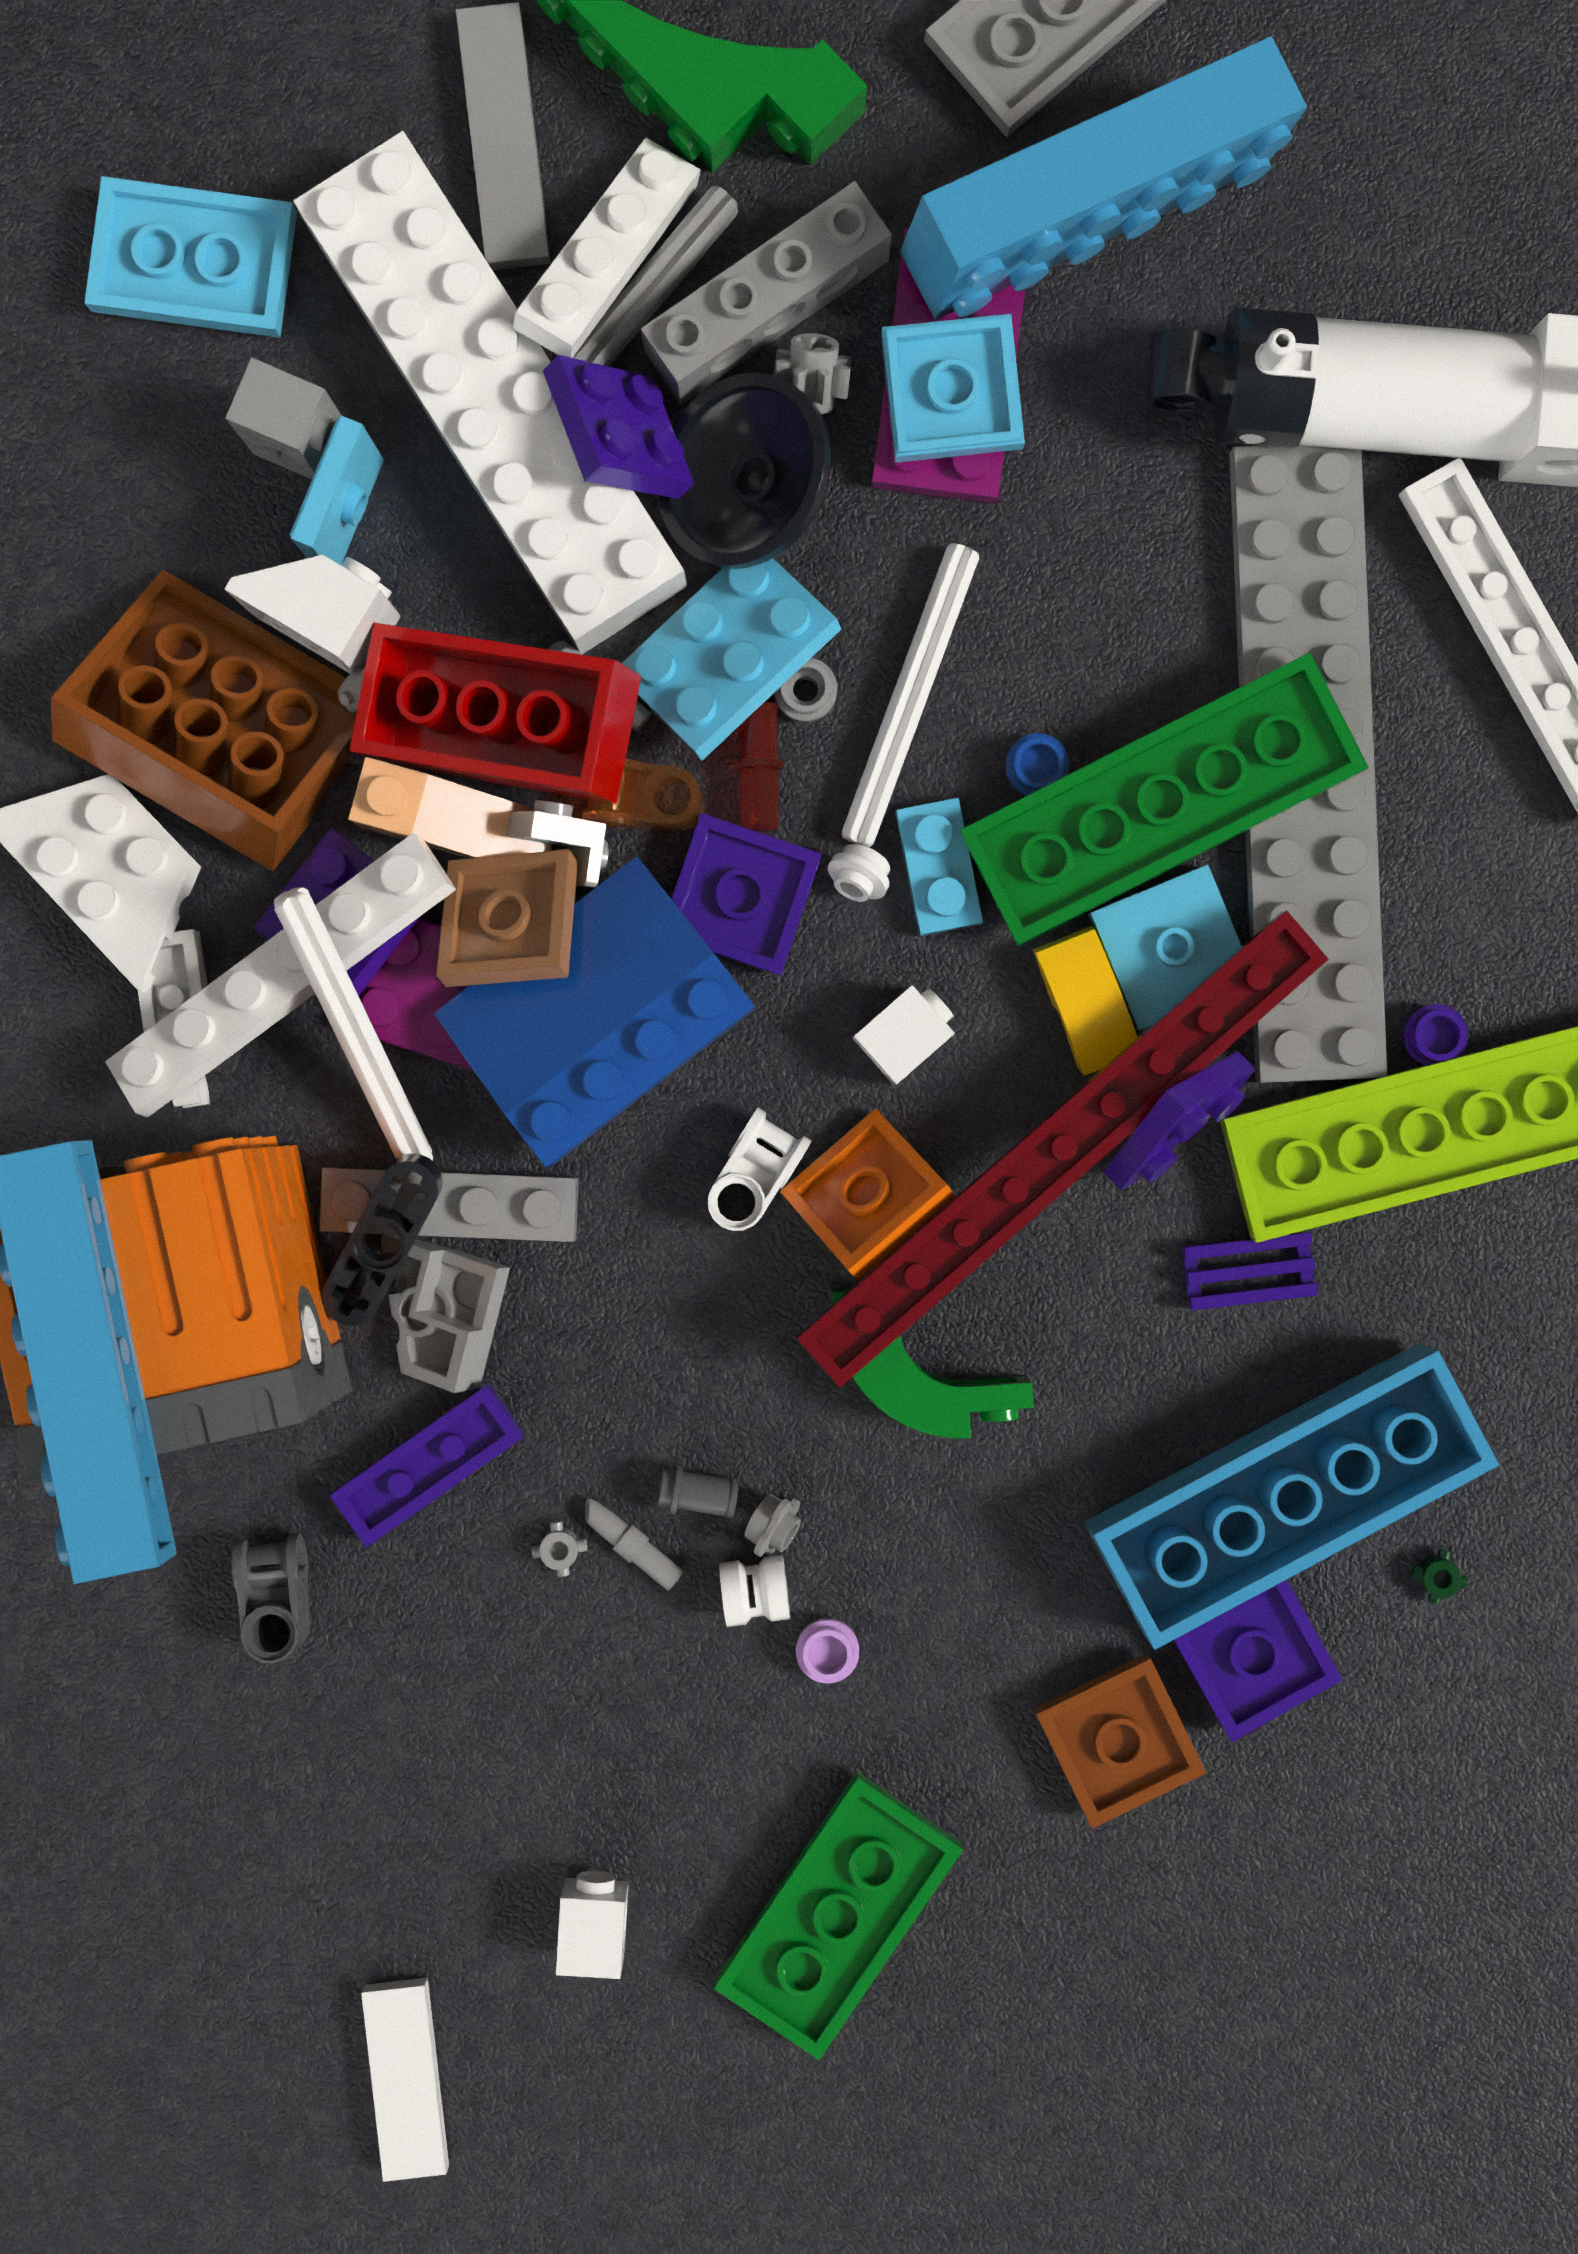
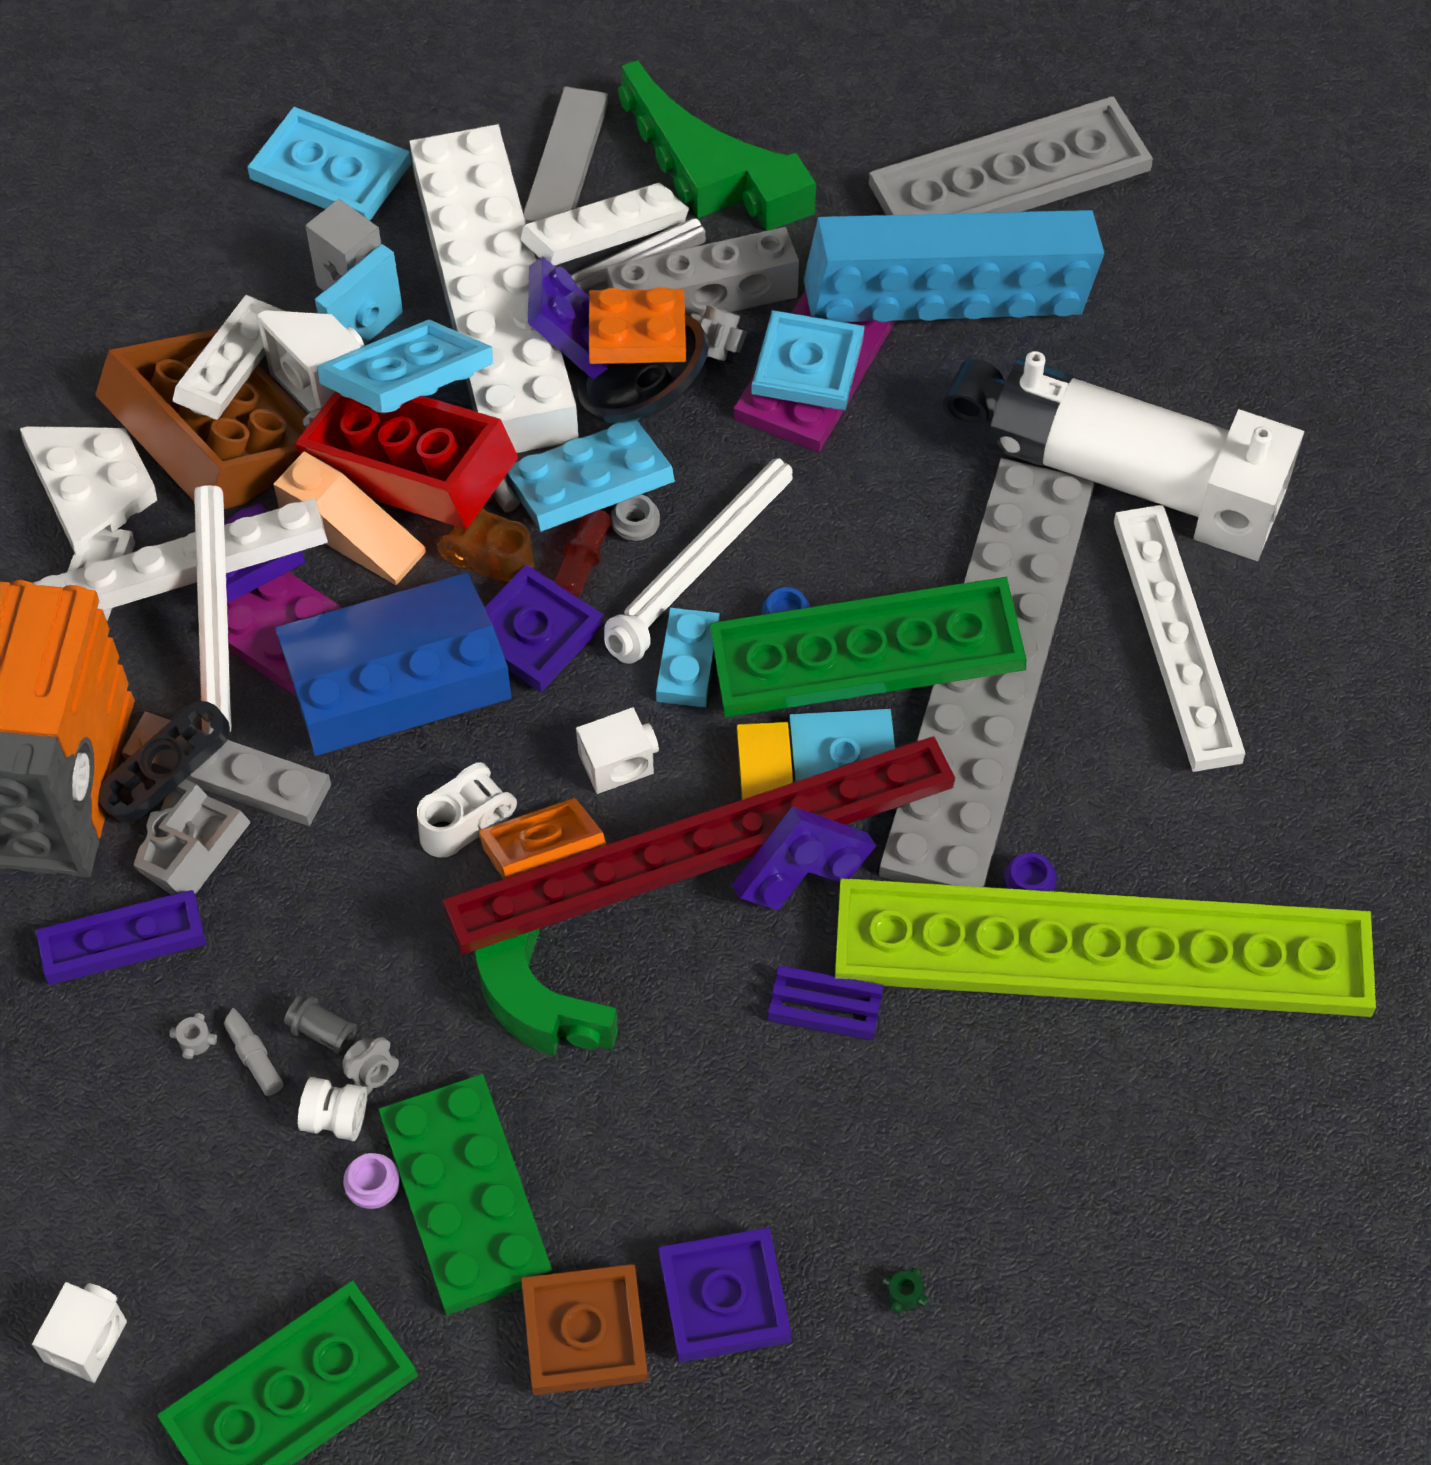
camera: 20 degrees right, 30 degrees down
(205, 638) = (224, 362): none -> white plate
(451, 601) = (405, 365): none -> medium azure plate
(508, 919) = (356, 578): medium nougat plate -> none
(554, 825) = (421, 544): bracket -> none
(722, 425) = (637, 326): none -> orange plate
(932, 1627) = (464, 1193): none -> green plate
(1291, 1493) = (796, 1162): dark azure brick -> none

